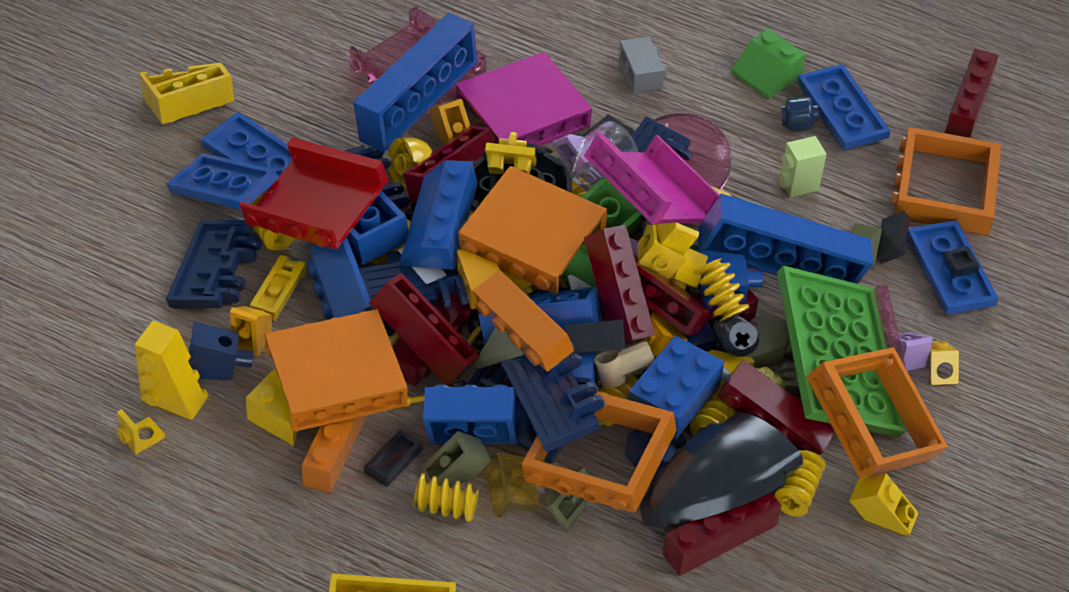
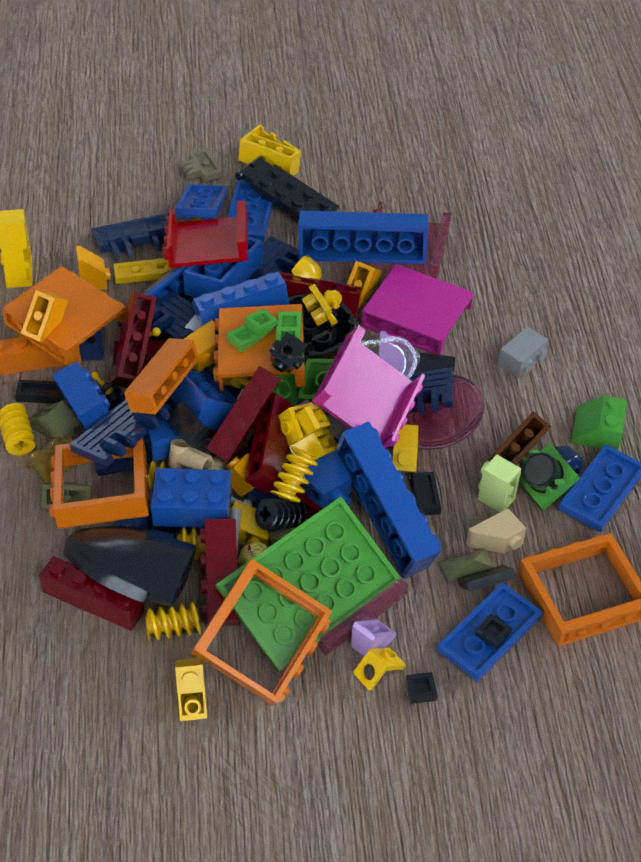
camera: 60 degrees right, 0 degrees up
(145, 156) = (202, 164): none -> dark tan hinge
(216, 352) = (51, 249): dark blue torso -> none
(263, 110) = (283, 188): none -> black hinge
(350, 377) = (43, 315): none -> light orange slope
(522, 219) = (255, 329): none -> bright green slope
(552, 195) = (289, 322): none -> bright green slope
(592, 203) = (287, 353): none -> black brick
(761, 130) = (523, 439): none -> reddish brown brick
(813, 122) = (544, 474): none -> piece
(849, 200) = (497, 533): none -> tan slope
(983, 344) = (421, 687): none -> black plate

